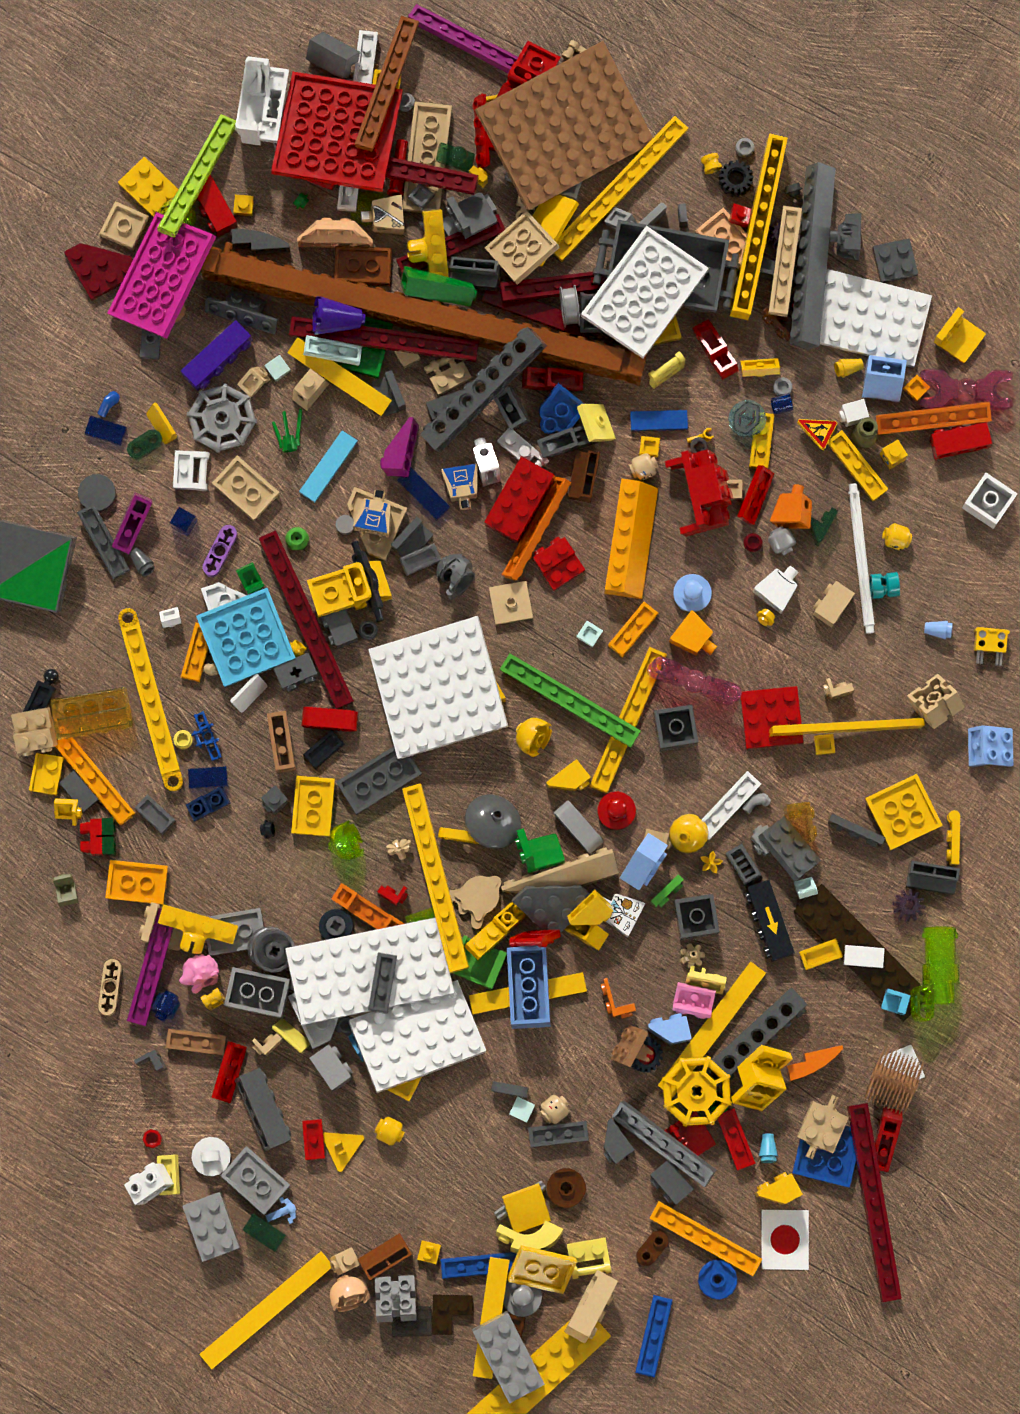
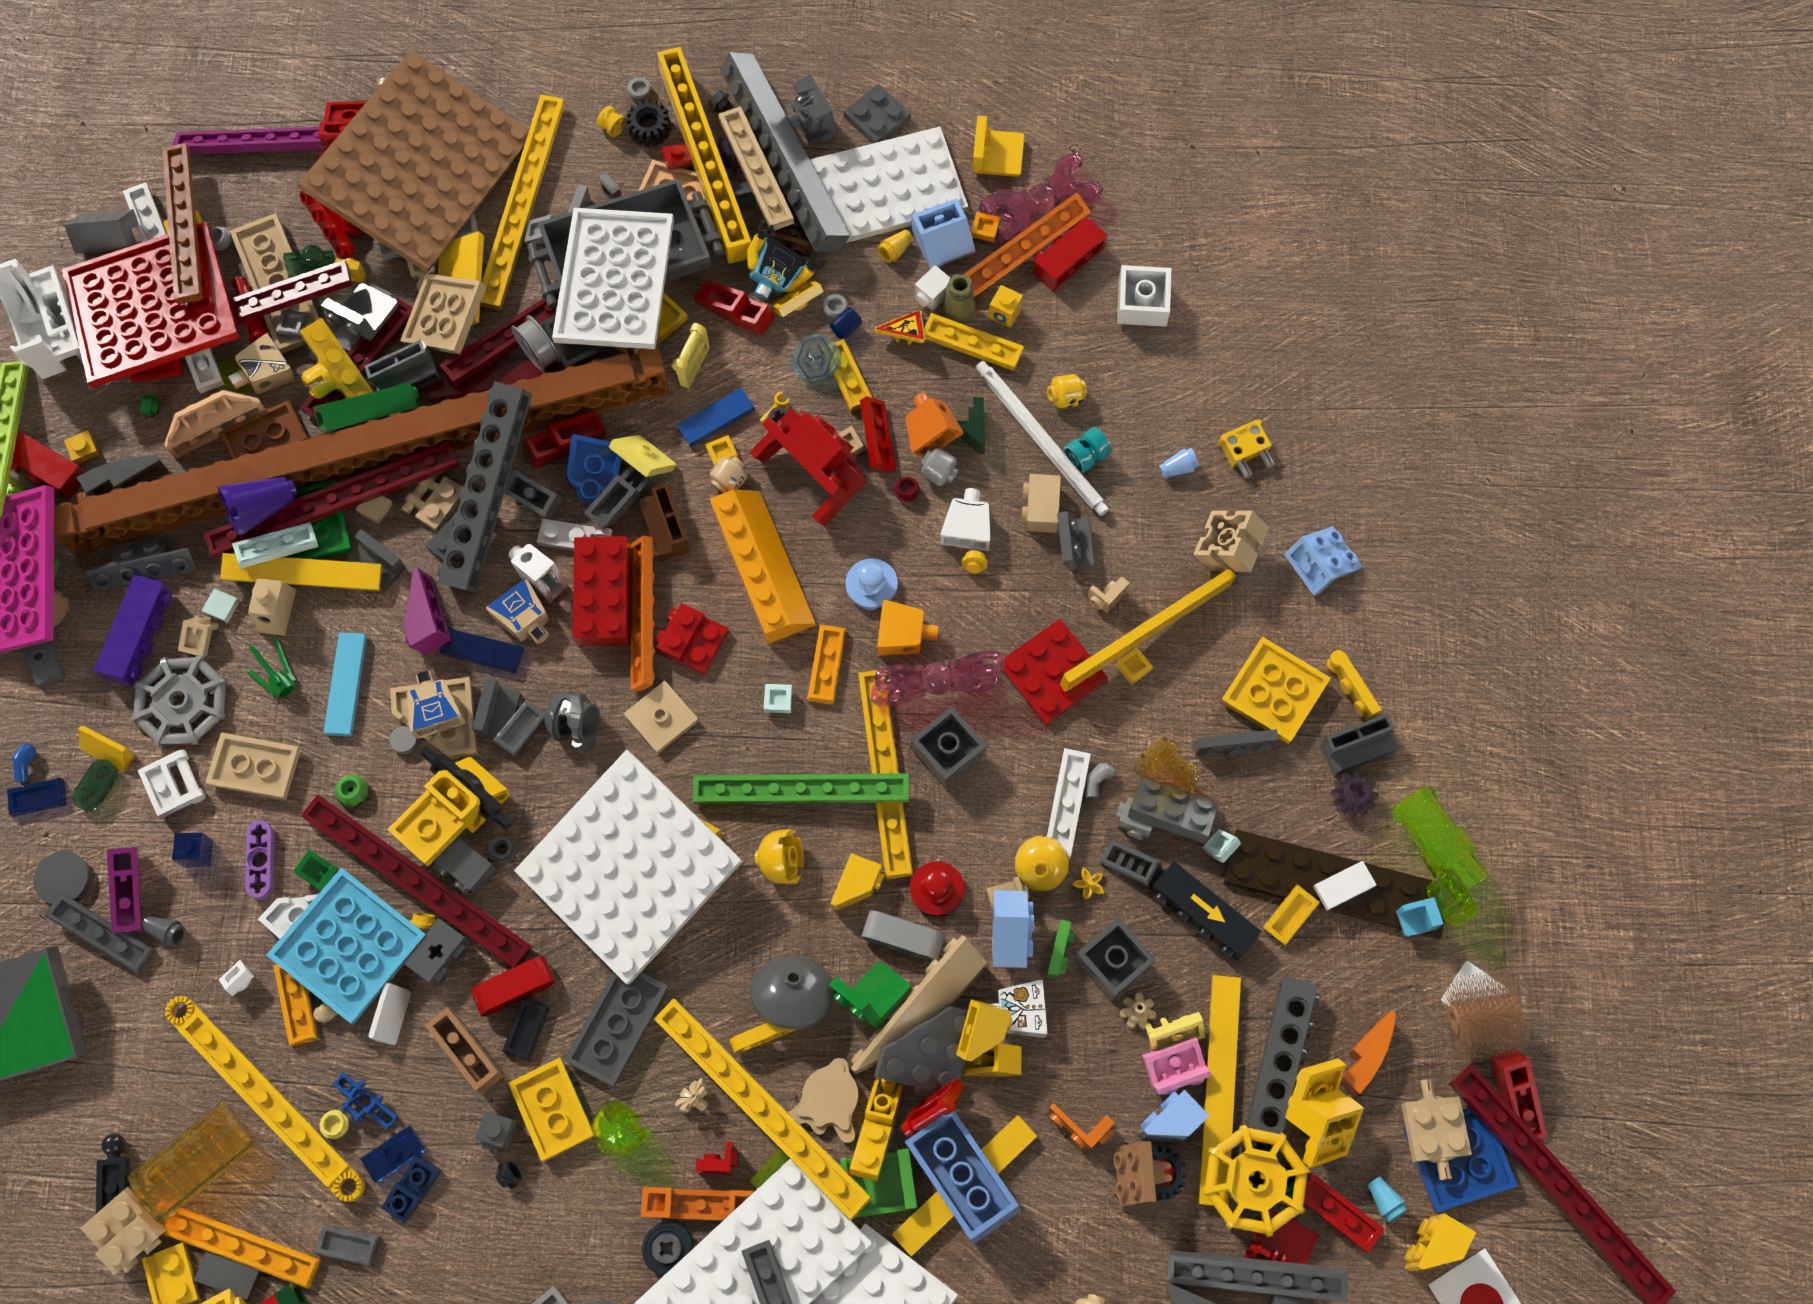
camera: 30 degrees left, 10 degrees down
(759, 338) = (776, 266): none -> torso
(838, 642) = (1075, 542): none -> dark grey bracket

